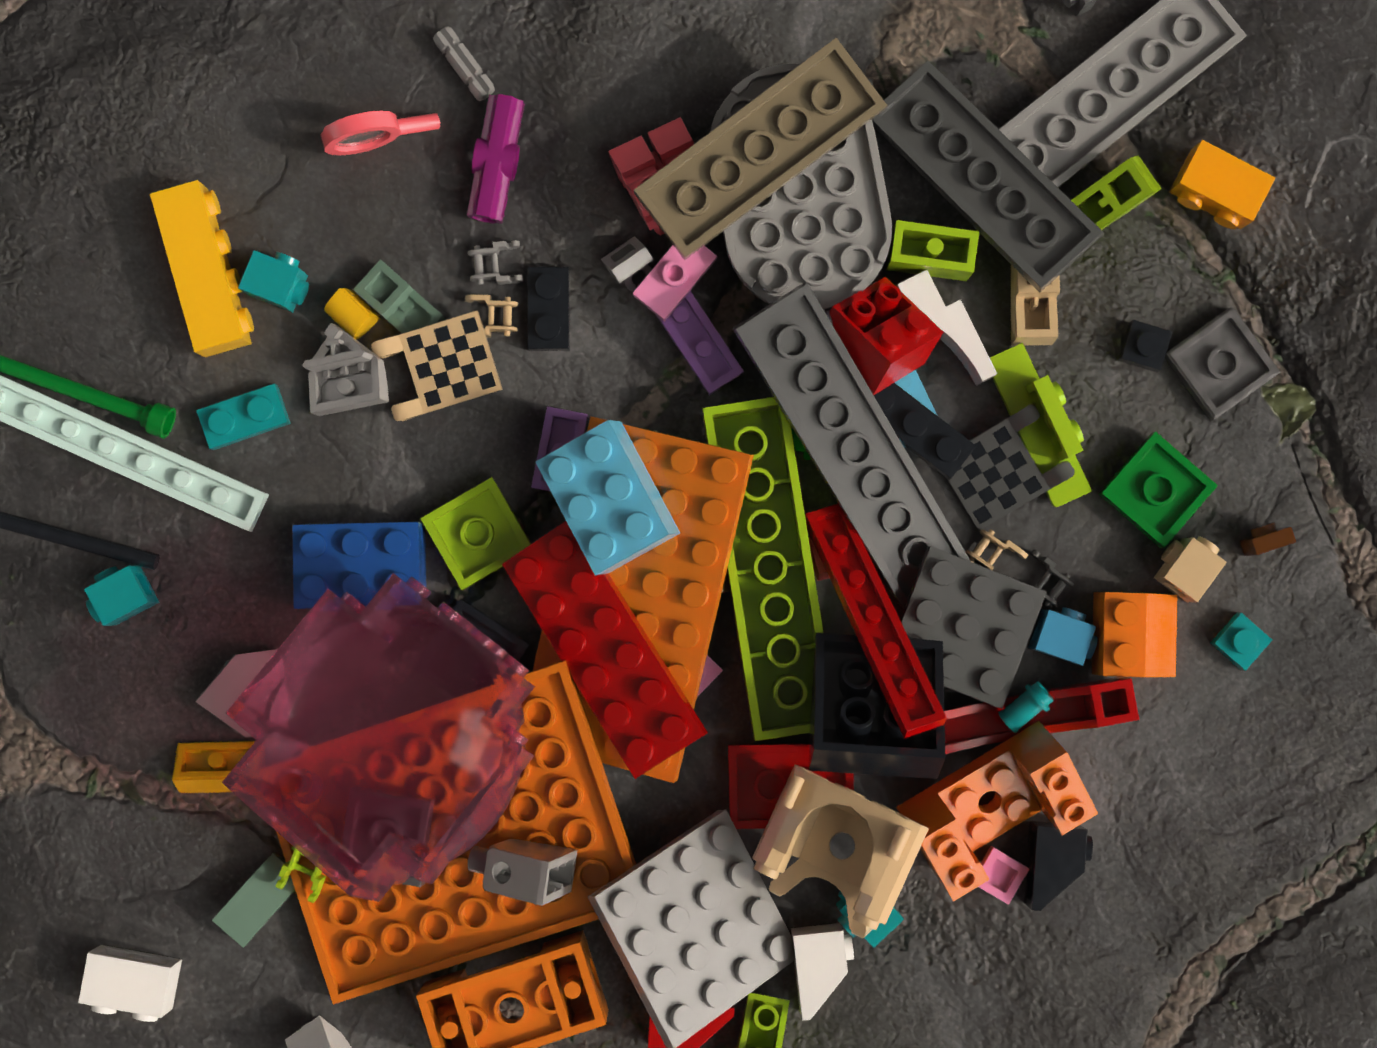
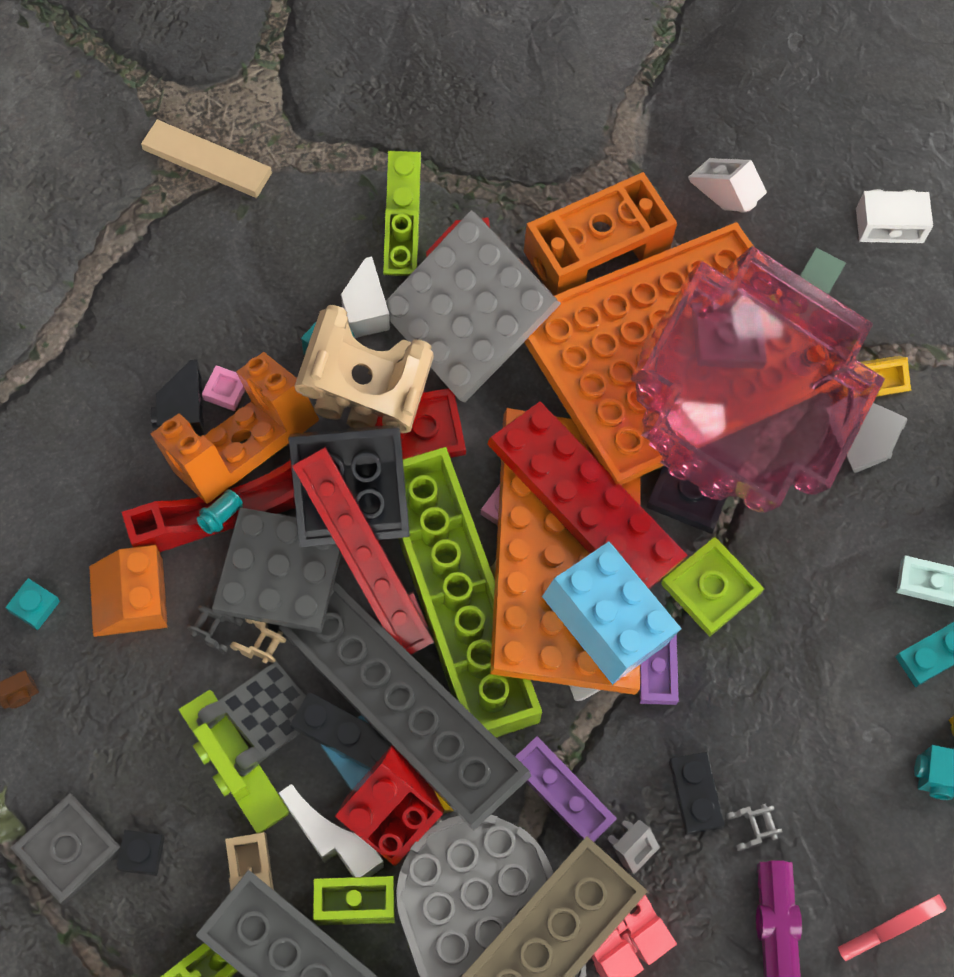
camera: 170 degrees right, 20 degrees down
(344, 375) = (861, 699): light grey slope -> none
(351, 312) = (870, 757): yellow brick -> none
(354, 558) = (805, 542): blue brick -> none
(396, 299) = (829, 774): sand green slope -> none
(446, 362) = (775, 725): tan flag -> none
(507, 306) = (751, 789): tan piece -> none
(525, 870) = (612, 316): light grey torso -> none
(673, 280) = (596, 820): bright pink plate -> none
(1064, 636) = (191, 580): dark azure brick -> none
(1158, 489) = (118, 720): green plate -> none
(1190, 567) = (83, 655): tan brick -> none

